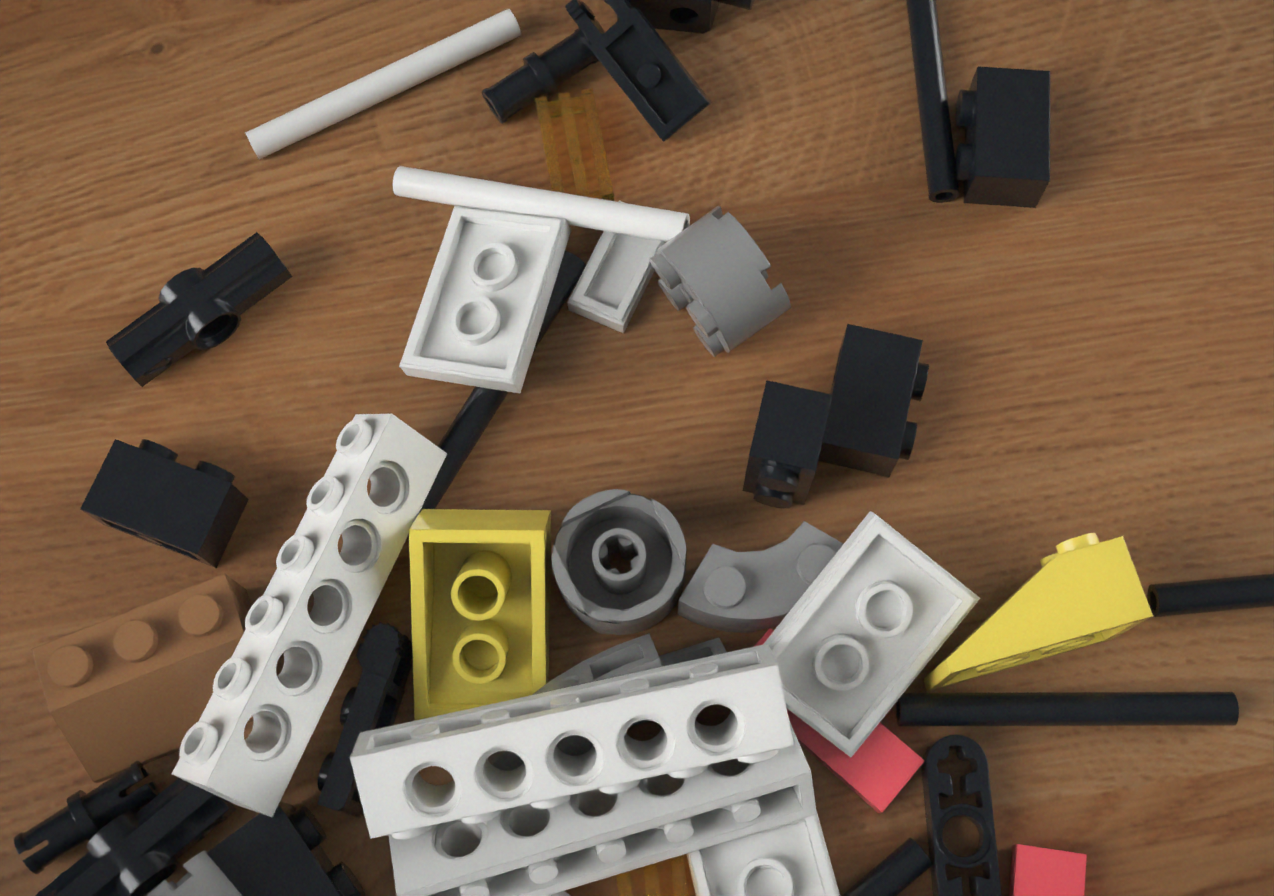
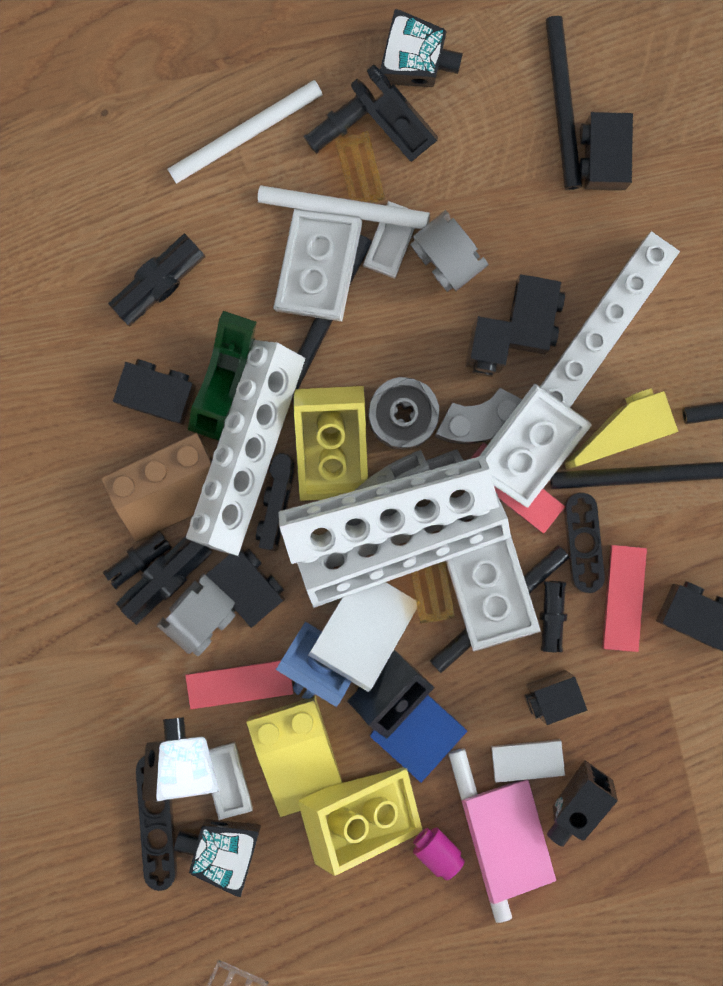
camera: 10 degrees left, 15 degrees up
(311, 416) = (223, 375): none -> dark green arch
(1012, 411) = (609, 319): none -> white brick

